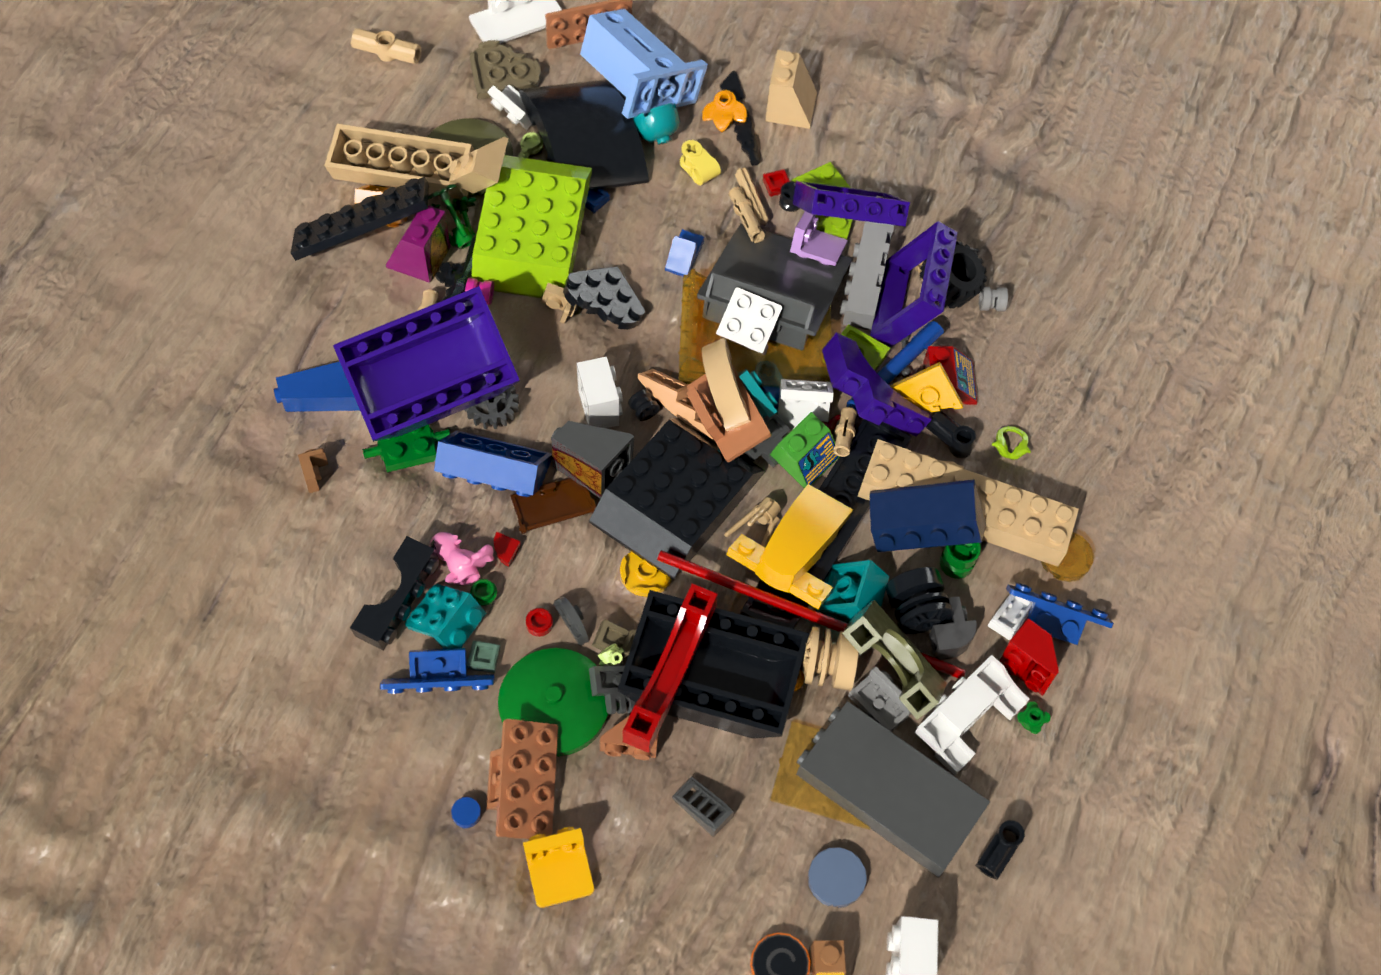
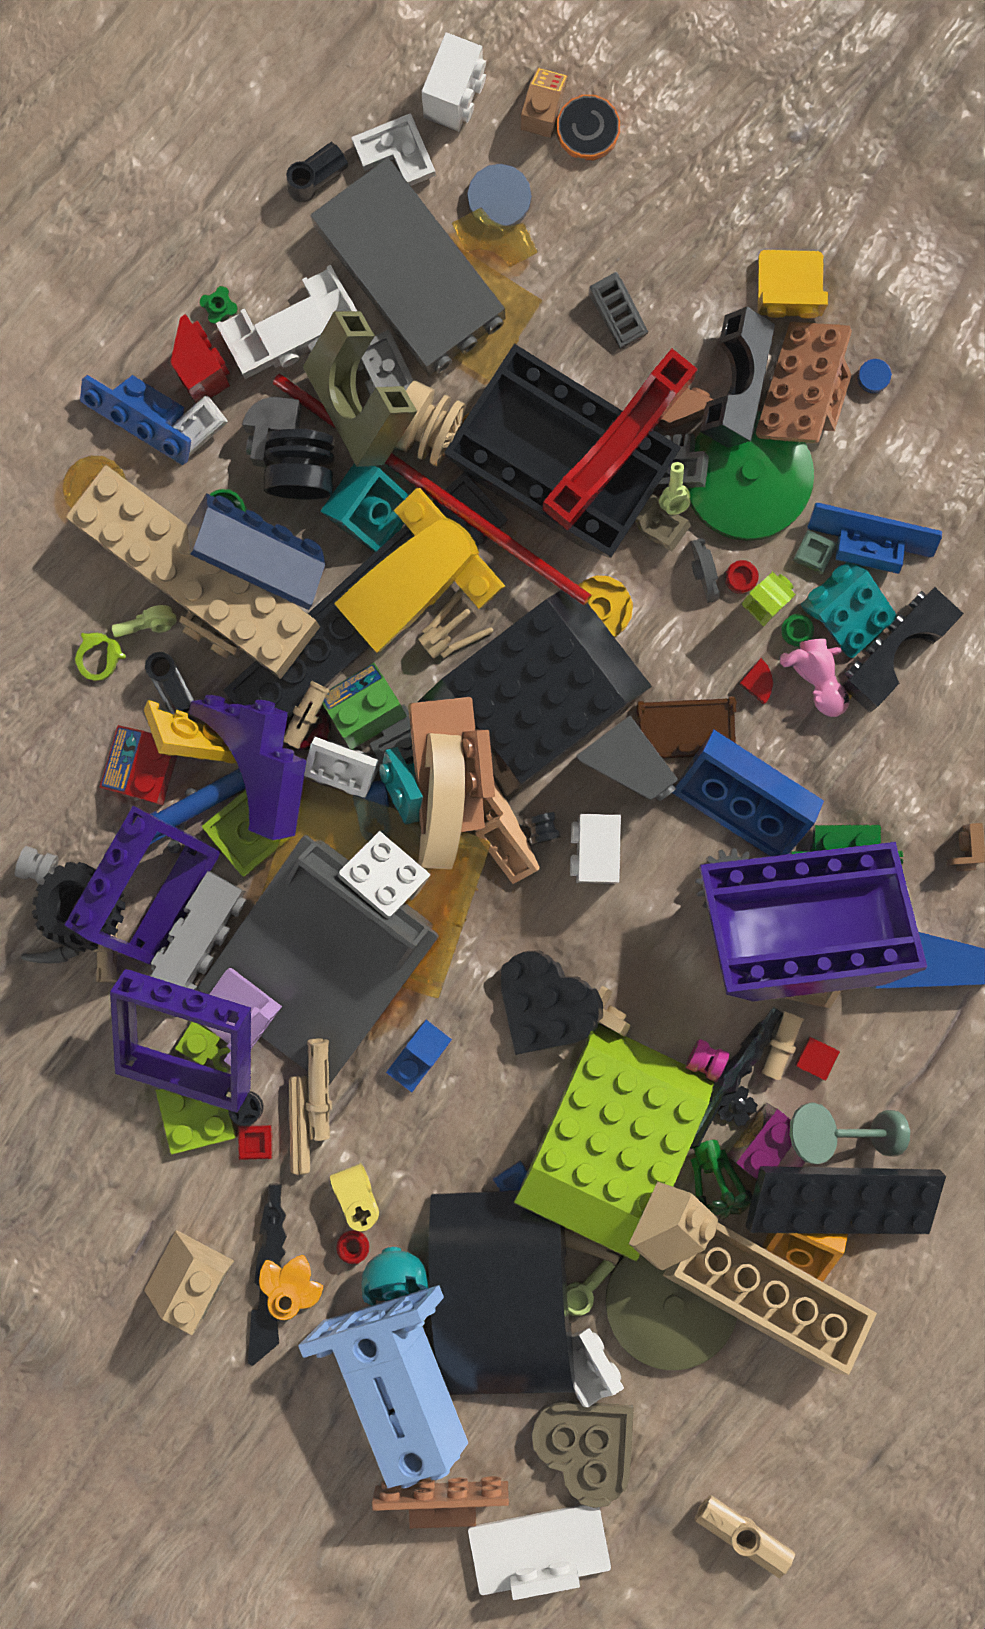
camera: 160 degrees left, 25 degrees up
(391, 245) = (816, 1134): none -> sand green piece
(398, 309) = (817, 1058): none -> red tile
(514, 601) = (768, 597): none -> lime arch
(581, 729) = (747, 343): none -> black arch
(690, 134) = (352, 1257): none -> red plate
(840, 837) = (508, 241): none -> clear yellow tile
(937, 897) = (396, 141): none -> white plate
(991, 470) = (157, 618): none -> yellowish green plate

